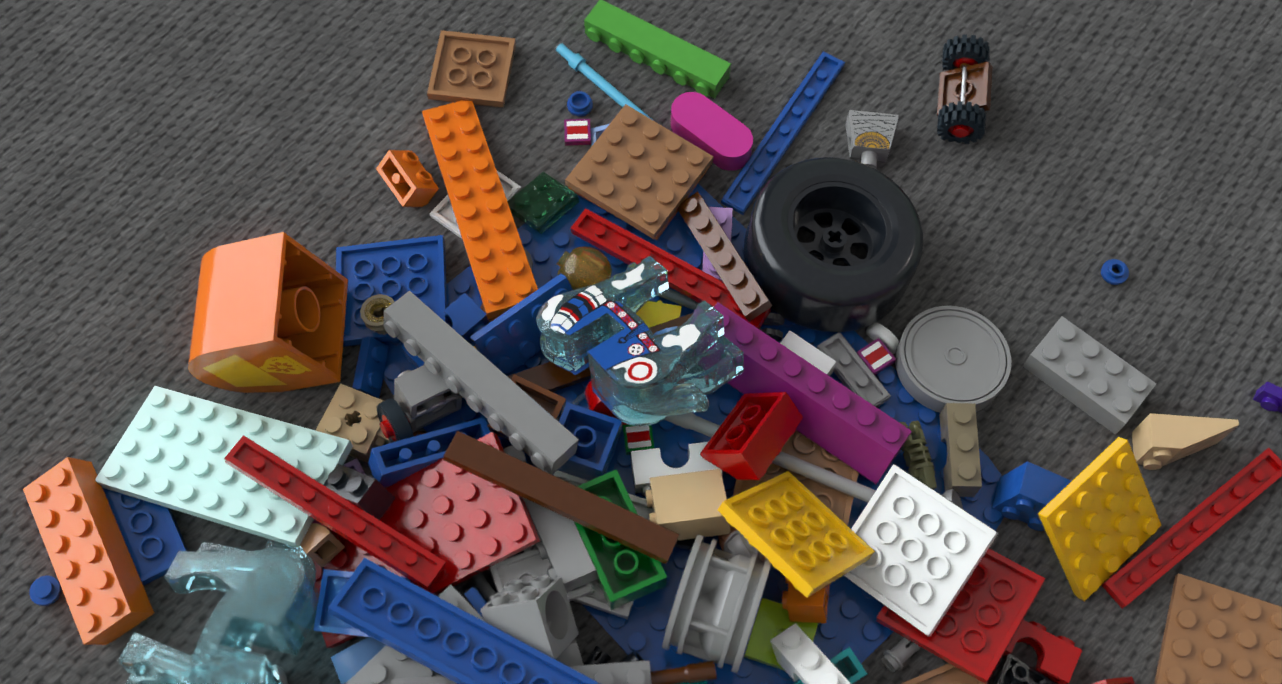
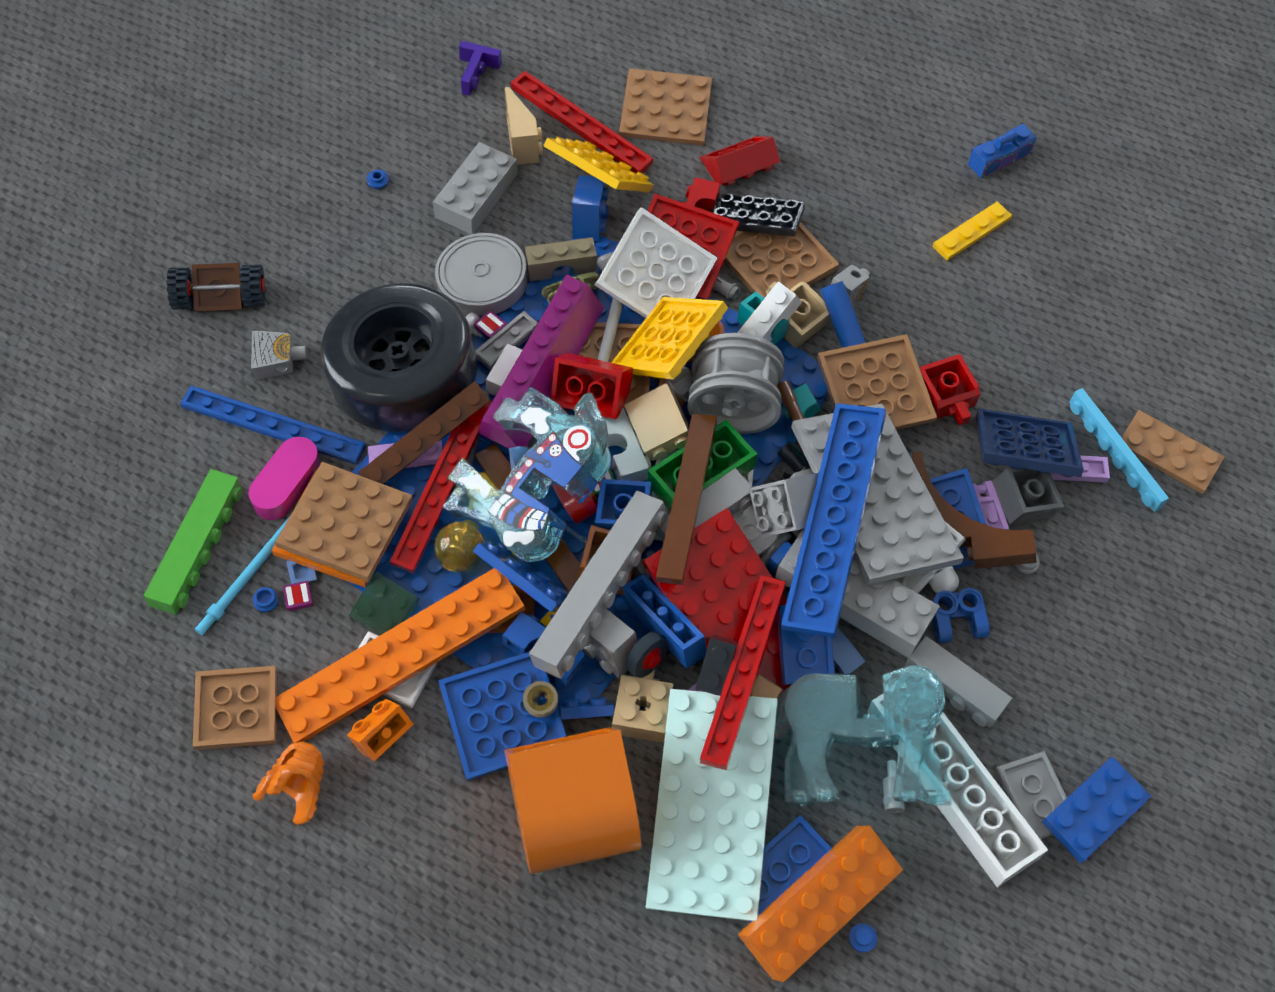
camera: 105 degrees left, 5 degrees down
(387, 104) = (297, 774): none -> orange hair

